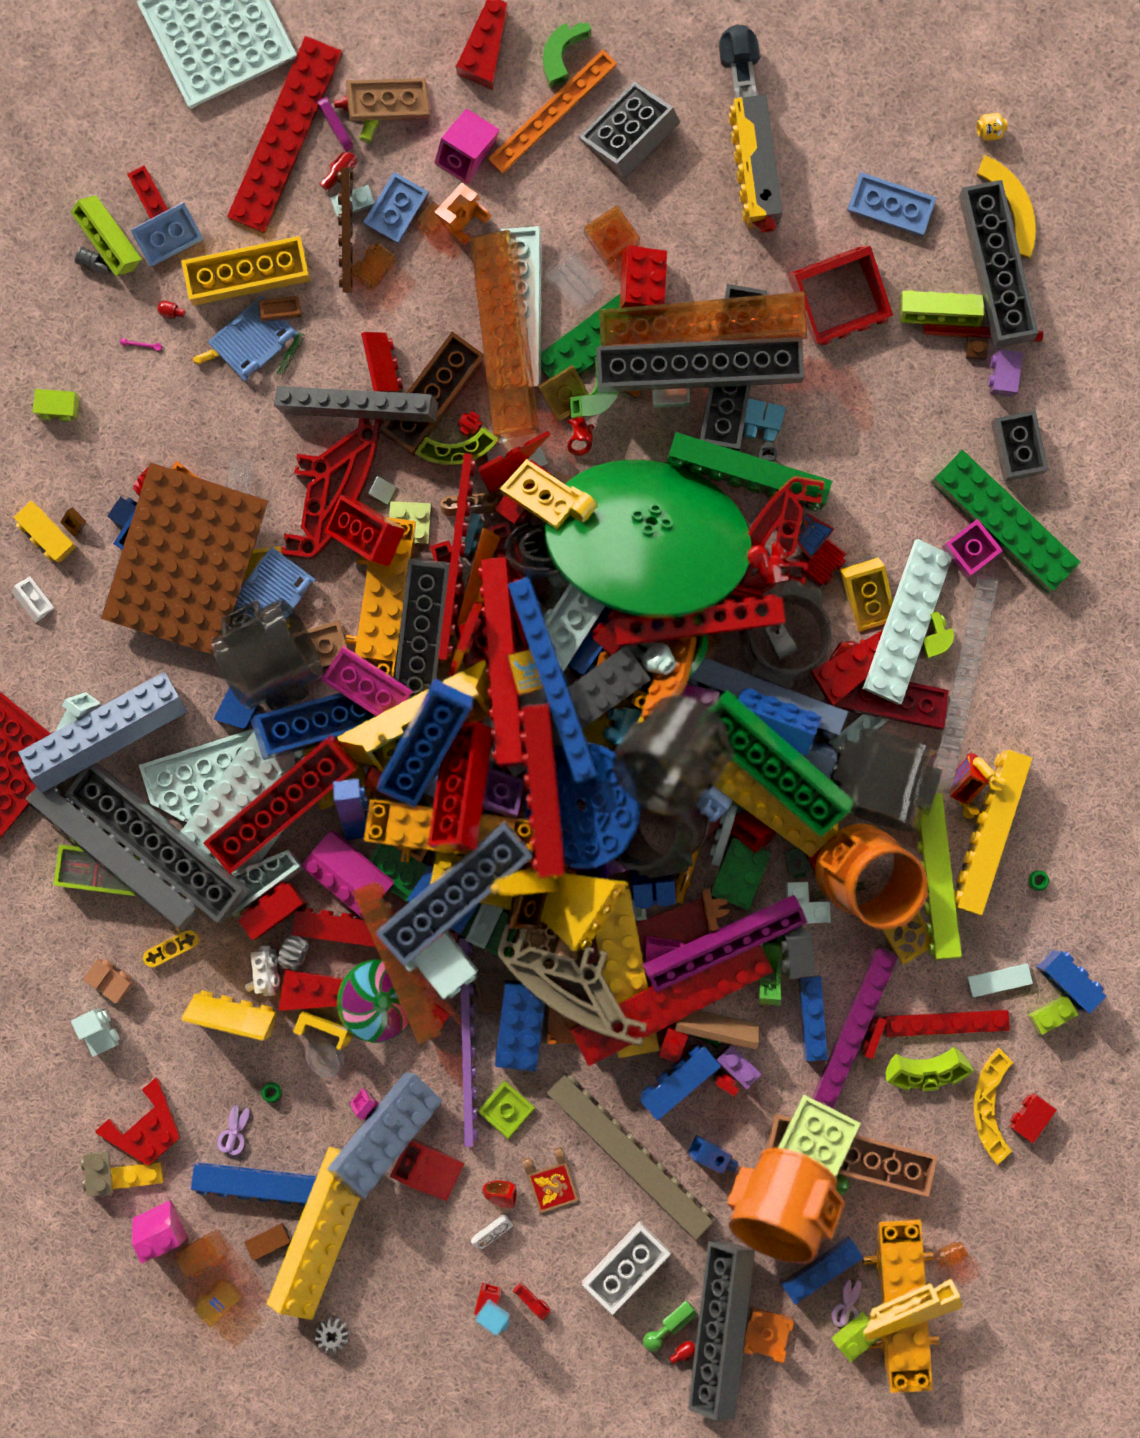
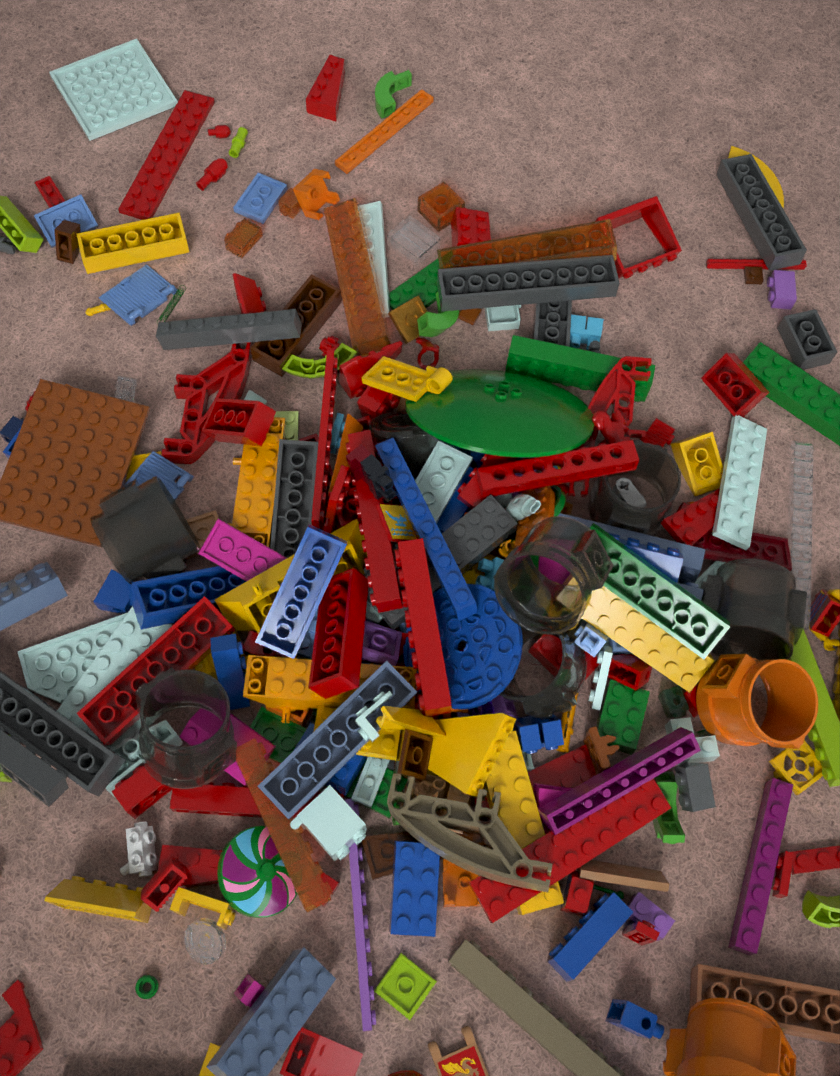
camera: 10 degrees left, 20 degrees down
(157, 346) = (54, 305): dark pink hinge -> none
(169, 265) = (67, 241): none -> reddish brown slope
(170, 310) = (66, 276): red cylinder -> none
(187, 946) = (30, 848): yellow beam -> none
(235, 1127) = (106, 1030): lavender piece -> none
(279, 308) = (162, 271): dark orange tile -> none
(288, 1009) = (164, 883): none -> red brick
(293, 952) = (171, 827): light grey gear -> none
(303, 912) = (187, 765): none -> clear smoke cylinder
(335, 124) = (208, 143): magenta beam -> none
(345, 178) = (218, 197): reddish brown wing -> none
(360, 199) = (223, 196): light aqua plate -> none
(387, 99) = (251, 125): medium nougat tile -> none
(466, 145) = (315, 150): dark pink slope -> none
(480, 892) = (366, 729): none -> light aqua bracket
(483, 498) = (343, 407): medium nougat beam -> none
(507, 628) = (369, 469): none -> black hips
(630, 129) = (449, 139): dark grey slope -> none
(751, 132) = (547, 136): piece -> none
(811, 535) = (643, 415): torso -> none
(812, 1018) = (717, 858): blue brick -> none
(820, 1133) = (751, 978): yellowish green plate -> none
(891, 204) = (664, 180): medium blue plate -> none
(922, 504) = (734, 385): none -> red brick
(940, 640) = (769, 494): lime brick -> none
(941, 308) = (719, 246): lime brick -> none
(972, 548) = (784, 419): dark pink brick -> none
(991, 126) = (733, 126): yellow head -> none

